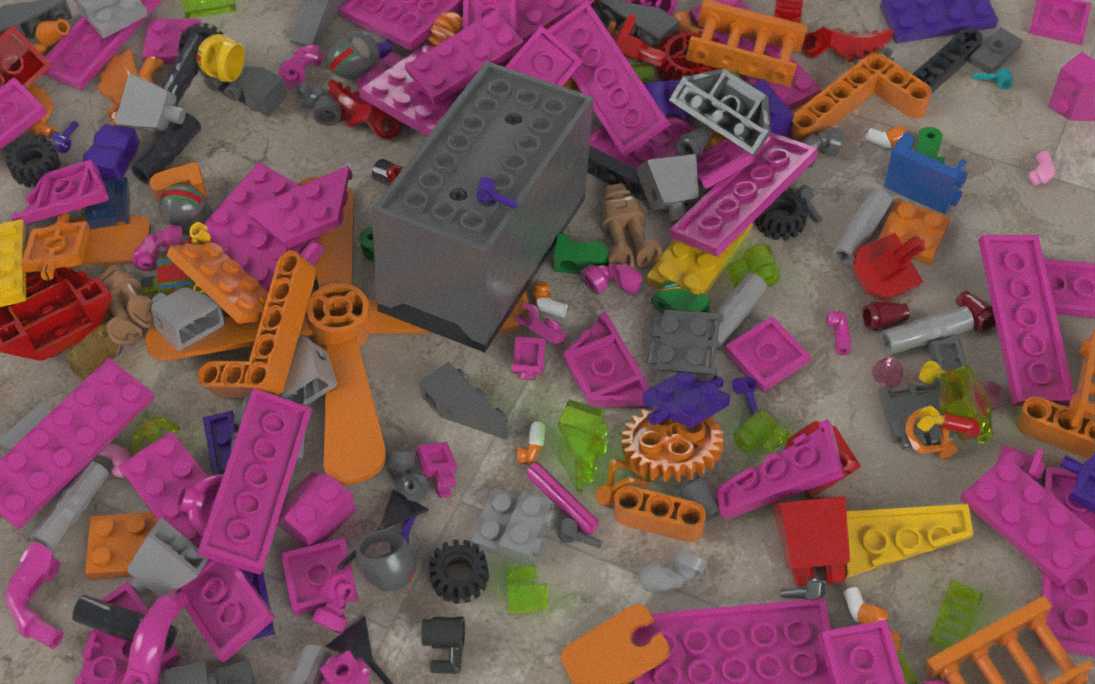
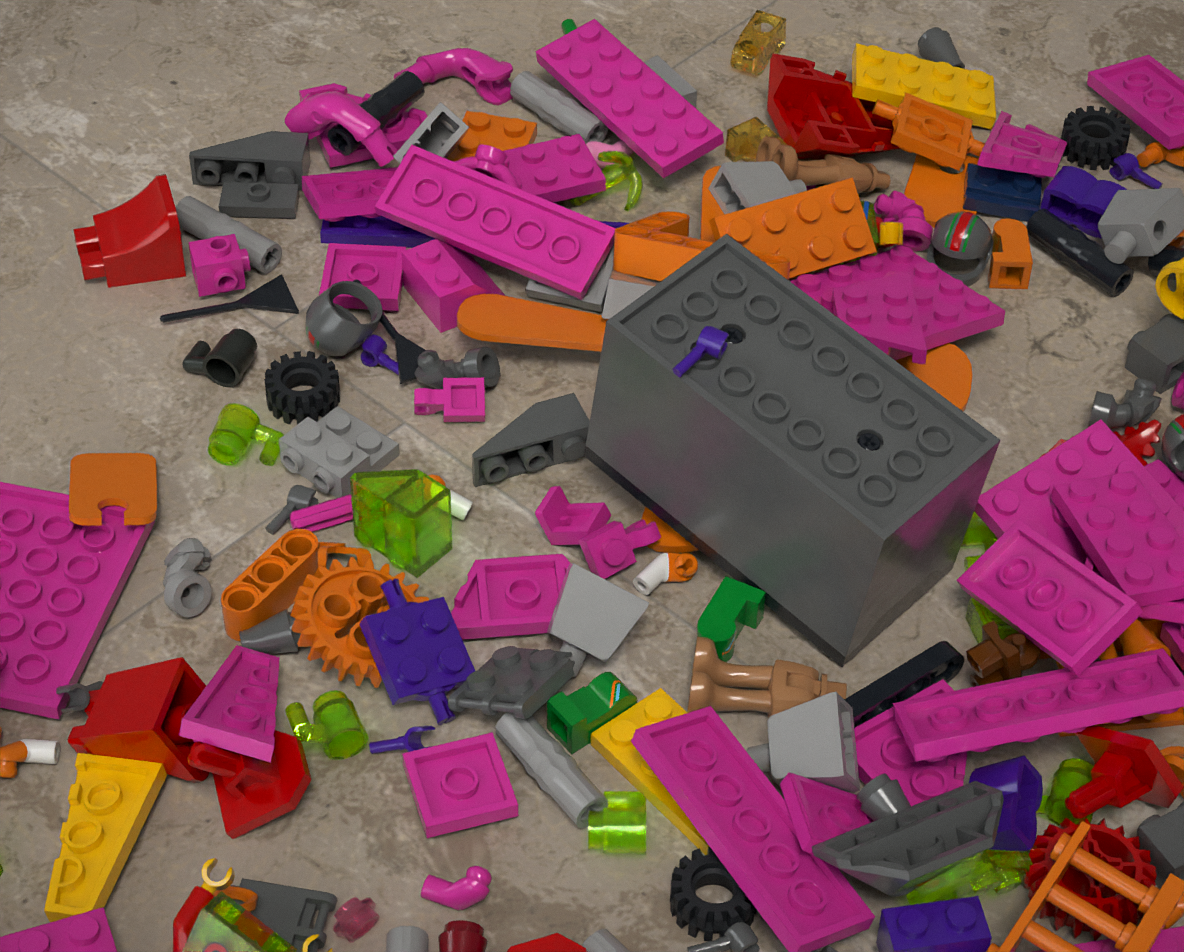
camera: 105 degrees right, 10 degrees down
(337, 593) = (306, 265): dark pink arm -> none
(597, 277) = (669, 650): dark pink arm -> none
(619, 311) = (592, 615): none -> light grey torso

